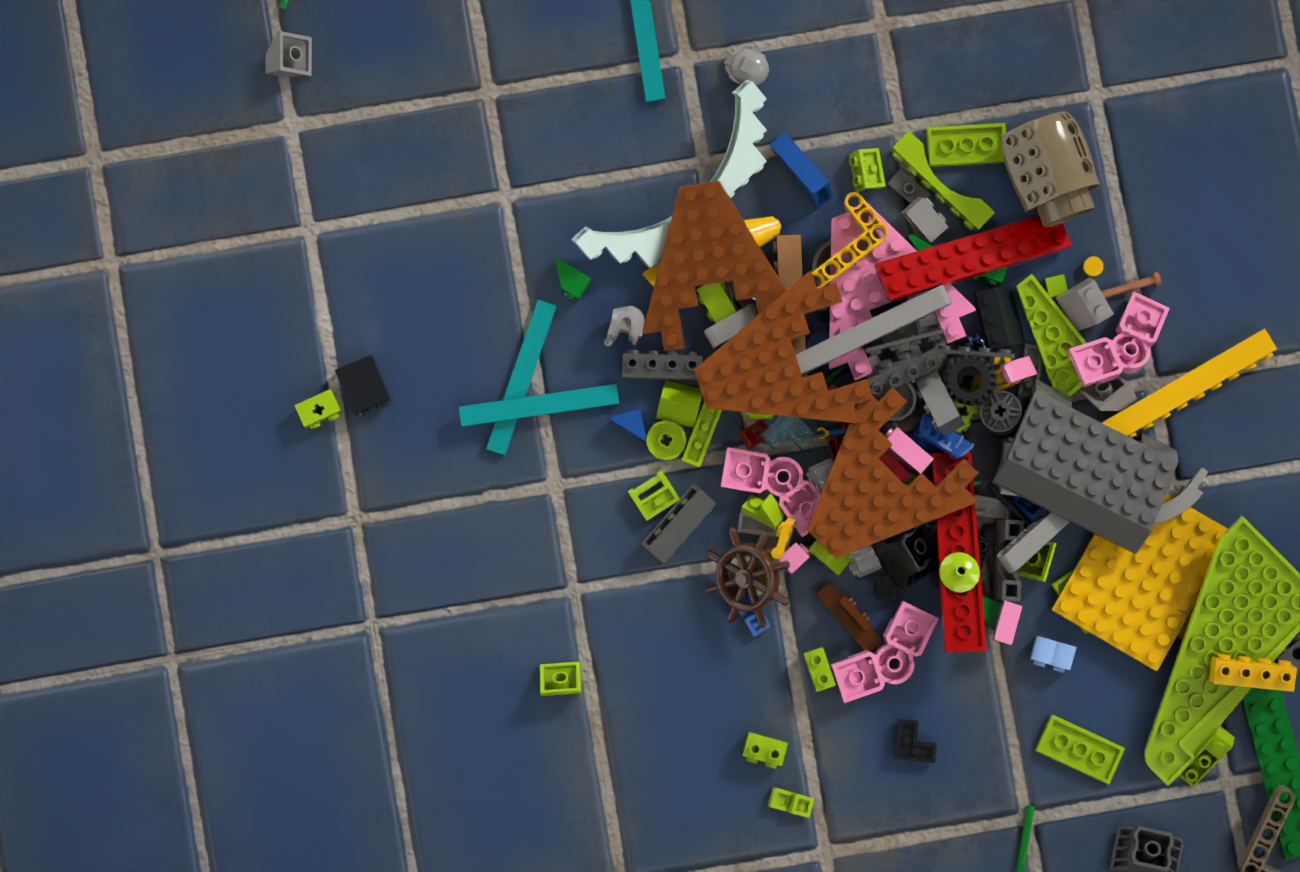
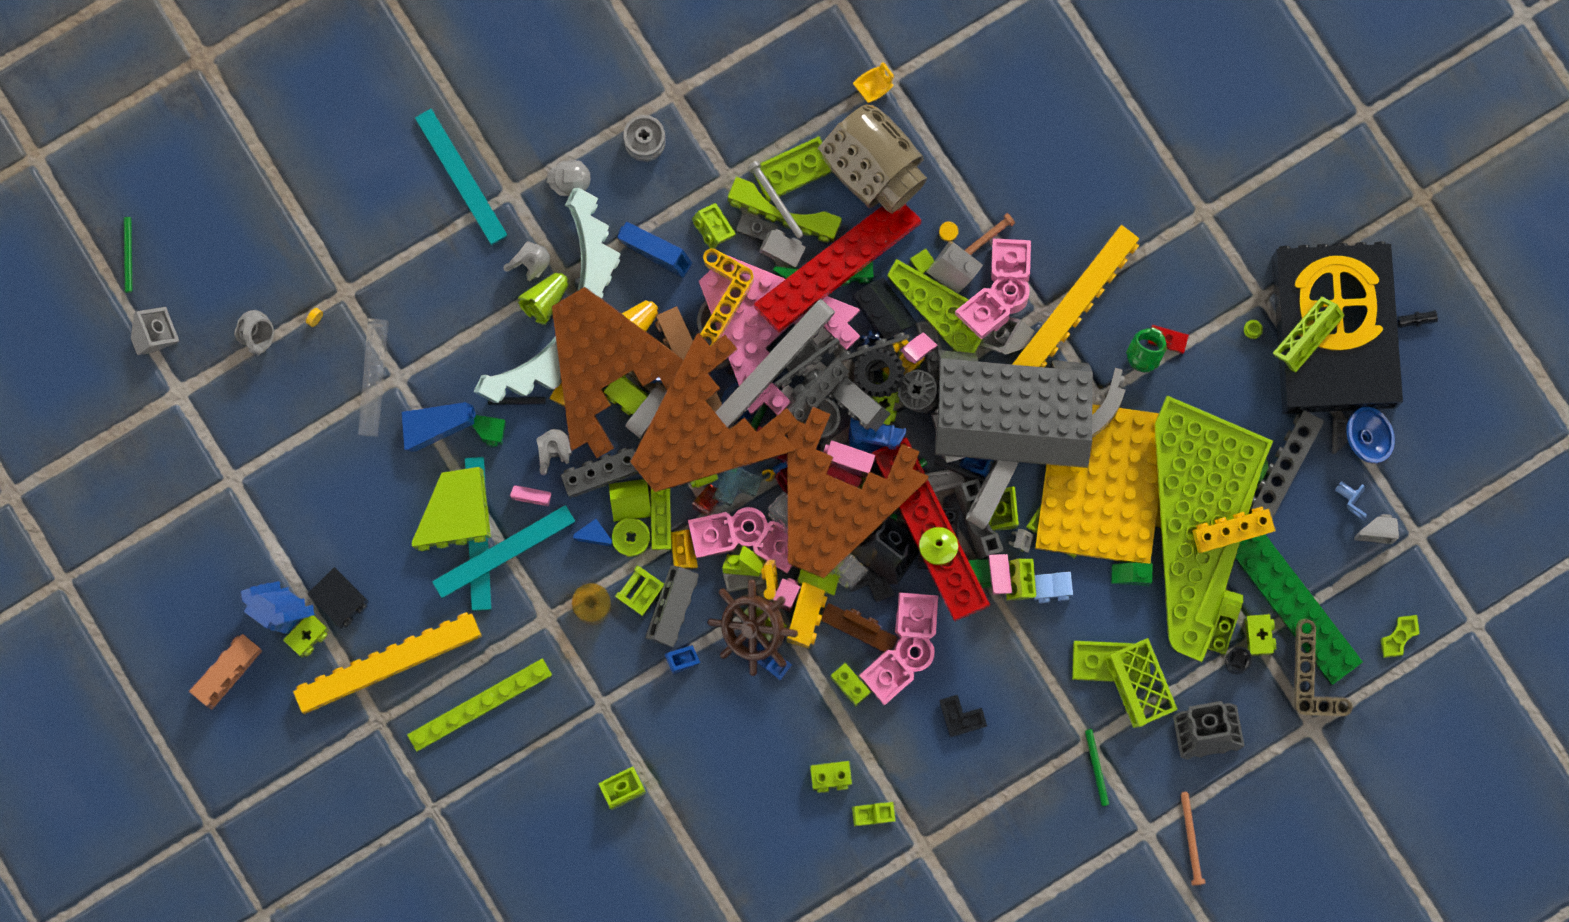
camera: 25 degrees left, 5 degrees down
(228, 413) = (225, 671): none -> nougat wedge
(298, 370) = (275, 607): none -> blue slope
(383, 92) = (252, 328): none -> light grey helmet
(385, 468) = (388, 663): none -> yellow brick
(448, 104) = (314, 317): none -> yellow tile
(457, 543) = (479, 705): none -> lime plate
(482, 185) = (373, 377): none -> clear slope
(508, 347) = (455, 511): none -> lime slope
(519, 254) = (432, 424): none -> blue slope
(586, 361) = (531, 495): none -> bright pink slope
(612, 484) = (583, 596): none -> clear yellow brick
(614, 265) = (520, 401): none -> black bar
(668, 578) = (682, 659): none -> blue slope
(676, 173) = (541, 297): none -> lime cone
(681, 130) = (533, 257): none -> light grey helmet
(711, 473) = (683, 549): none -> yellow slope
(805, 585) = (807, 615): none -> yellow slope
(839, 46) = (642, 127): none -> light grey wheel
(931, 129) = (755, 168): none -> light grey bar
(1026, 635) = (1022, 579): none -> lime brick
(1042, 597) = (1022, 541): none -> light grey tile
(1080, 92) = (874, 83): none -> yellow piece
(1084, 787) = (1125, 687): none -> lime fence
(1135, 673) = (1132, 574): none -> green slope
(1204, 799) = (1238, 660): none -> black wheel
(1231, 467) = (1142, 358): none -> green helmet
(1234, 772) = (1253, 626): none -> lime brick
(1263, 458) = (1175, 340): none -> red plate

